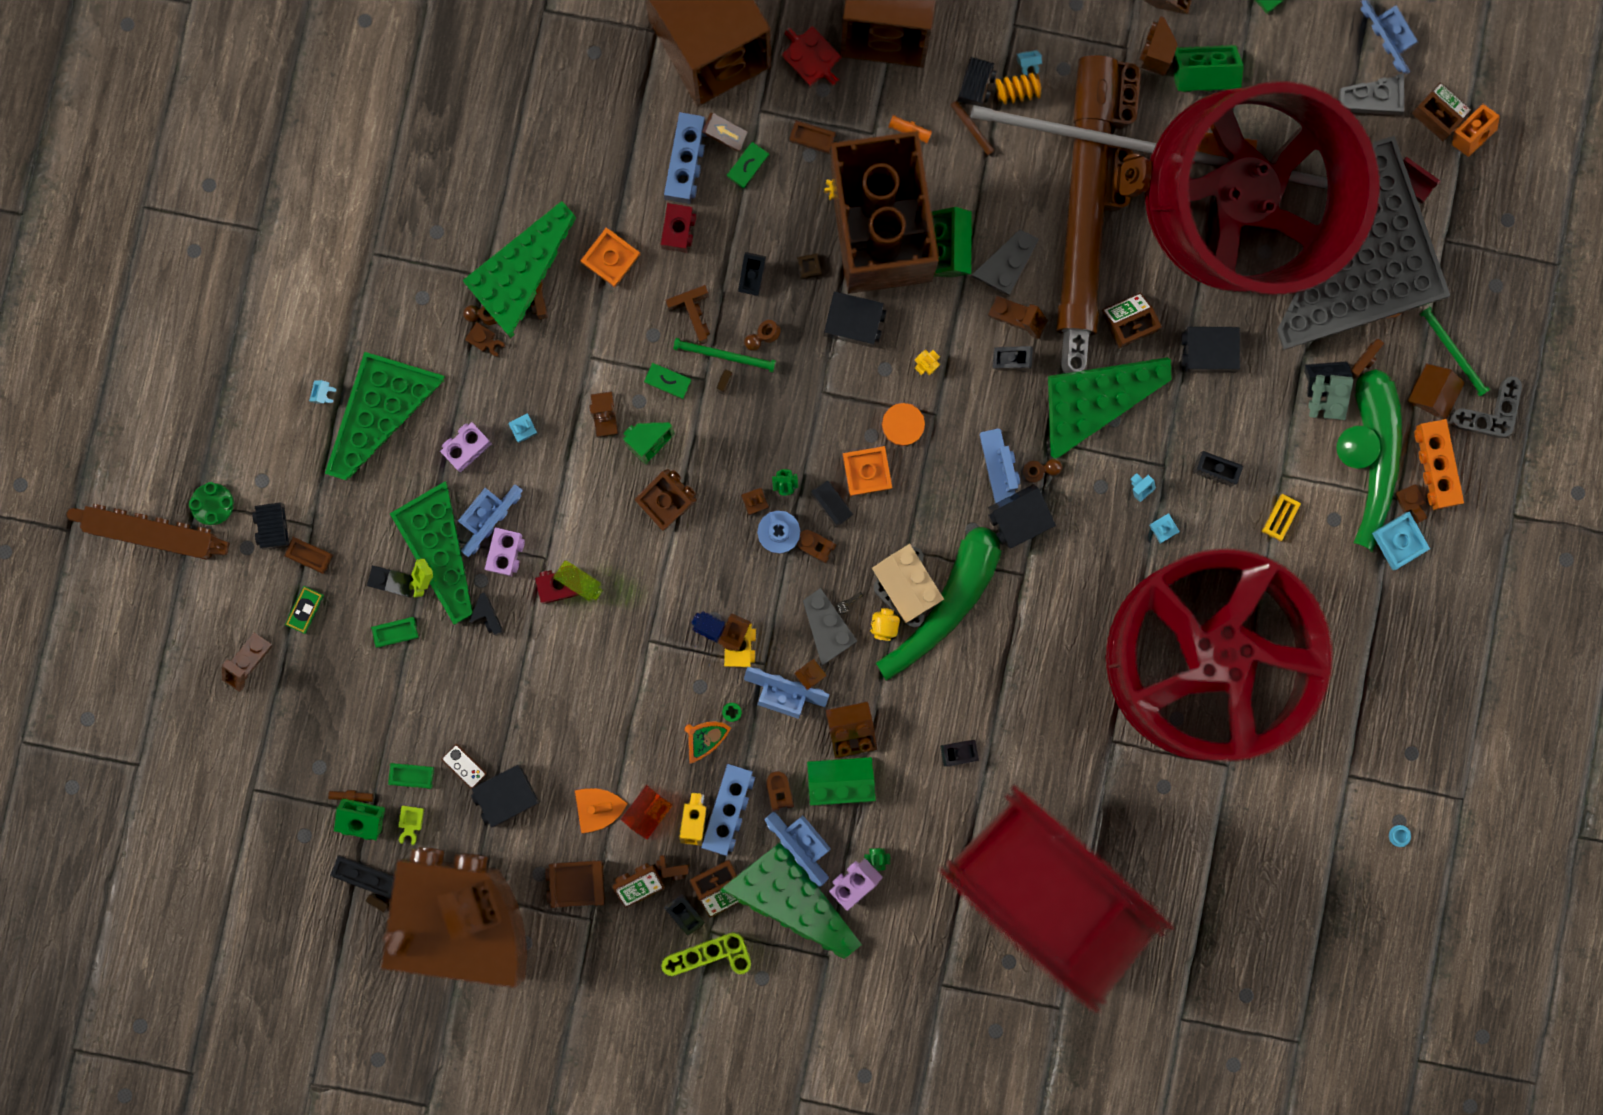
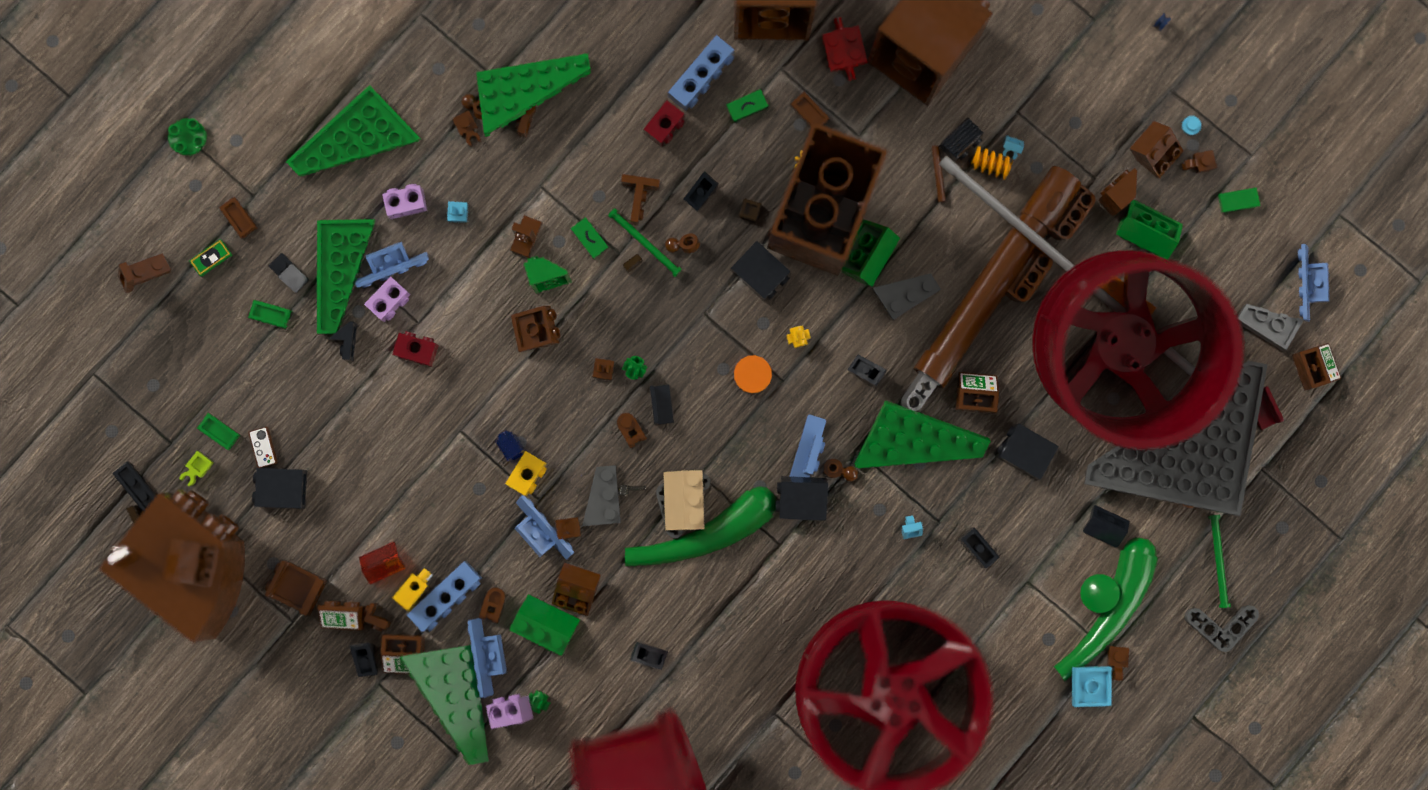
camera: 30 degrees right, 0 degrees up
(148, 533) = (125, 131): reddish brown hinge -> none
(271, 526) = (222, 179): black brick -> none
(319, 392) = (317, 97): medium azure tile -> none
(351, 795) = (163, 421): reddish brown bar -> none
(370, 815) = (158, 442): green brick -> none
(421, 577) = (313, 282): lime plate -> none
(579, 581) = (431, 355): clear neon green bracket -> none
(597, 808) = (346, 538): orange shield -> none
(610, 257) = (600, 118): orange plate -> none
(705, 738) = (459, 531): shield -> none
(705, 957) = (361, 702): lime beam -> none
(724, 132) = (743, 69): tile -> none
(728, 717) = (486, 525): green bush -> none
(734, 632) = (526, 462): reddish brown bracket -> none
(778, 532) = (607, 403): medium blue piece -> none
(867, 471) = (703, 394): orange plate -> none
(885, 624) = (648, 522): yellow head -> none
(904, 126) = (886, 144): orange pin -> none
(1019, 316) = (891, 341): reddish brown bracket -> none
(1140, 182) = (1050, 277): reddish brown plate -> none
(1164, 528) = (910, 570): medium azure tile -> none
(1273, 534) = (994, 622): yellow tile -> none
(1337, 397) = (1104, 546): sand green plate -> none
(1367, 358) = (1146, 528): reddish brown plate -> none
(1436, 390) = (1187, 584): reddish brown slope -> none
(1444, 453) = (1165, 637): orange brick -> none
(1475, 130) = (1335, 396): orange brick -> none

